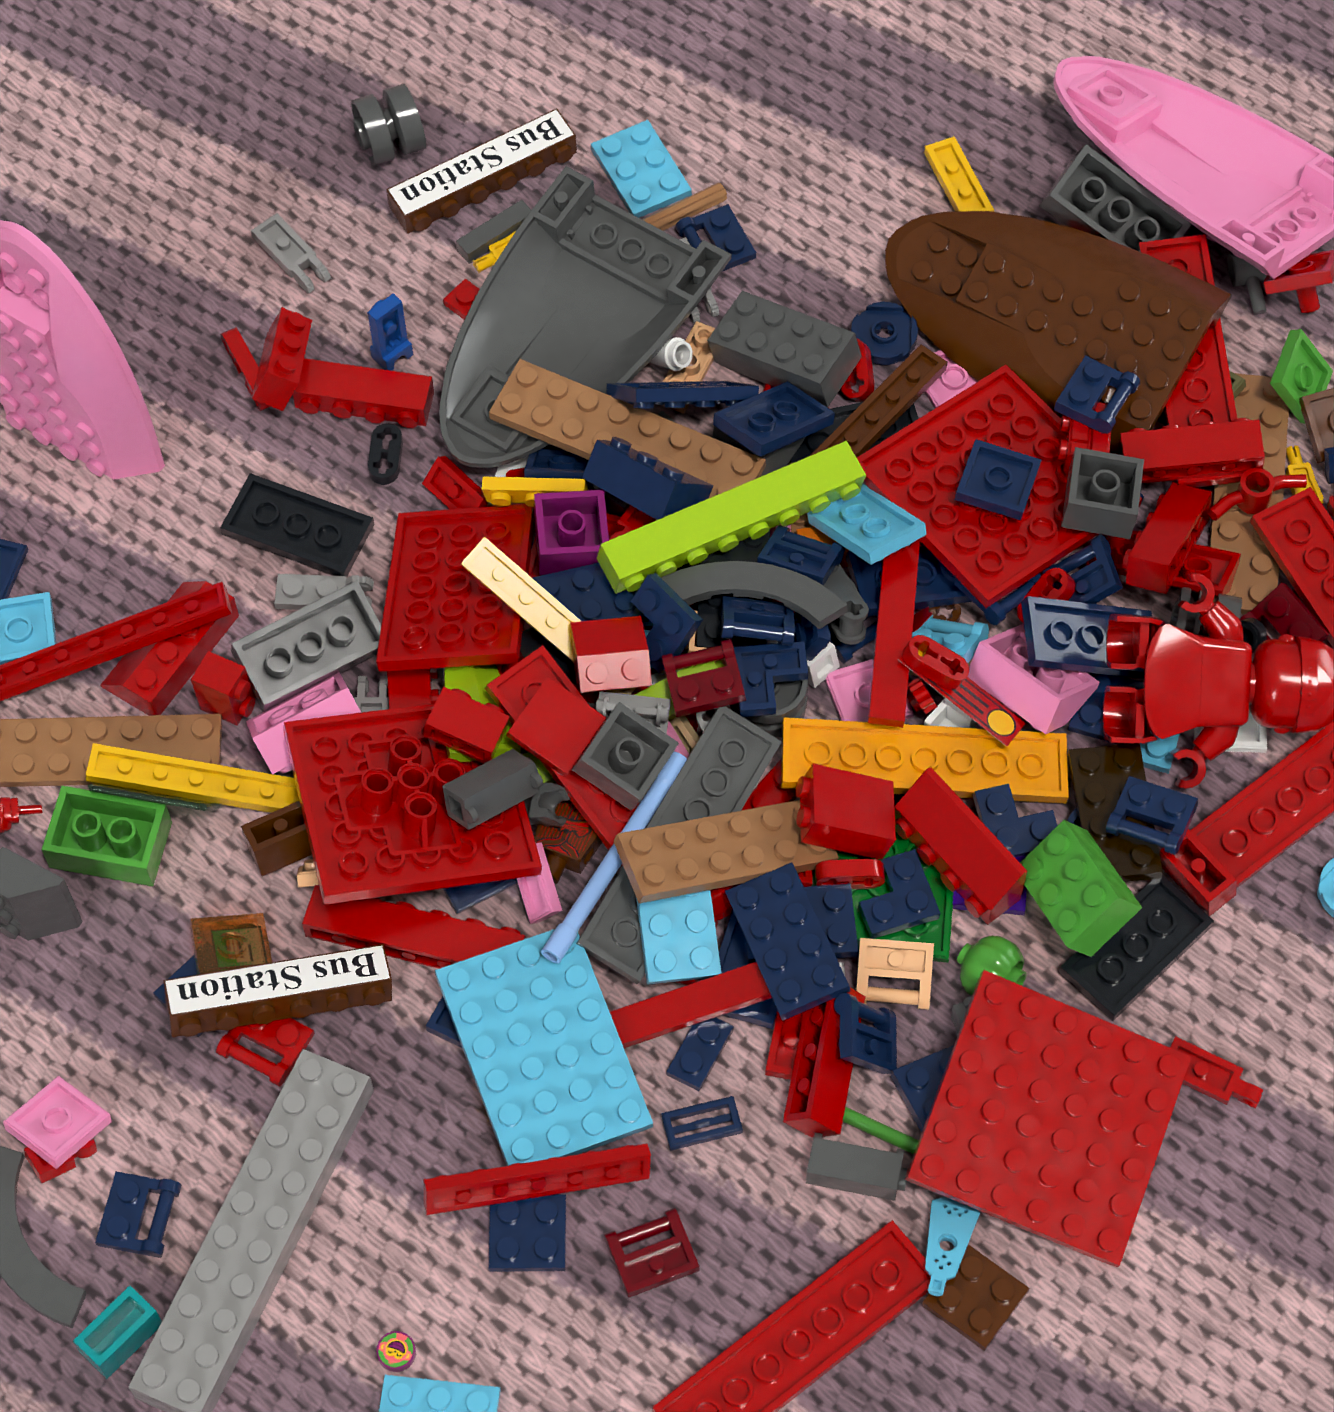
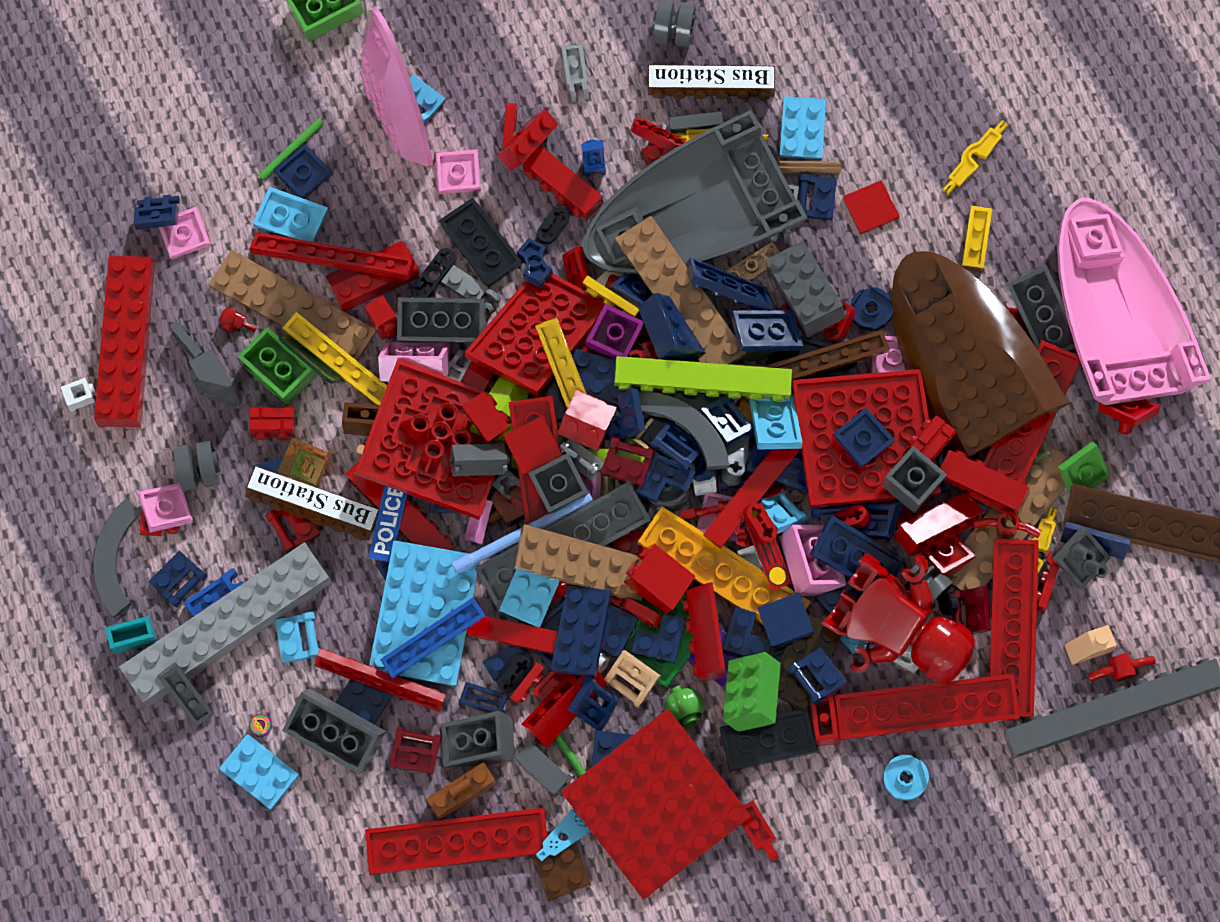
camera: 35 degrees right, 10 degrees up
(81, 1026) = (203, 464): none -> dark grey wheel
(147, 916) = (272, 422): none -> red brick
(204, 1203) = (212, 592): none -> blue plate
(206, 455) = (458, 171): none -> bright pink tile
(252, 589) = (432, 267): none -> black beam
(257, 1368) = (185, 694): none -> dark grey plate
(364, 1203) = (290, 637): none -> medium azure plate
(398, 514) = (536, 269): none -> dark blue tile
(408, 954) = (387, 524): none -> blue sticker
(451, 271) = (655, 134): none -> red beam
(516, 1290) = (334, 731): none -> dark grey brick
(580, 1071) = (432, 638): none -> blue plate
(674, 354) = (742, 258): white cone -> none
(723, 1059) = (513, 672): none -> black beam
(733, 1183) = (478, 740): none -> dark grey slope
(753, 1050) = (521, 691): none -> red plate
(758, 1267) = (461, 791): none -> dark orange piece
(796, 216) = (871, 207): none -> red tile
(830, 707) = (695, 513): none -> red hinge
(883, 105) = (968, 165): none -> yellow piece
(1055, 770) = (785, 620): none -> dark blue tile
(1087, 389) = (946, 414): dark blue plate -> none

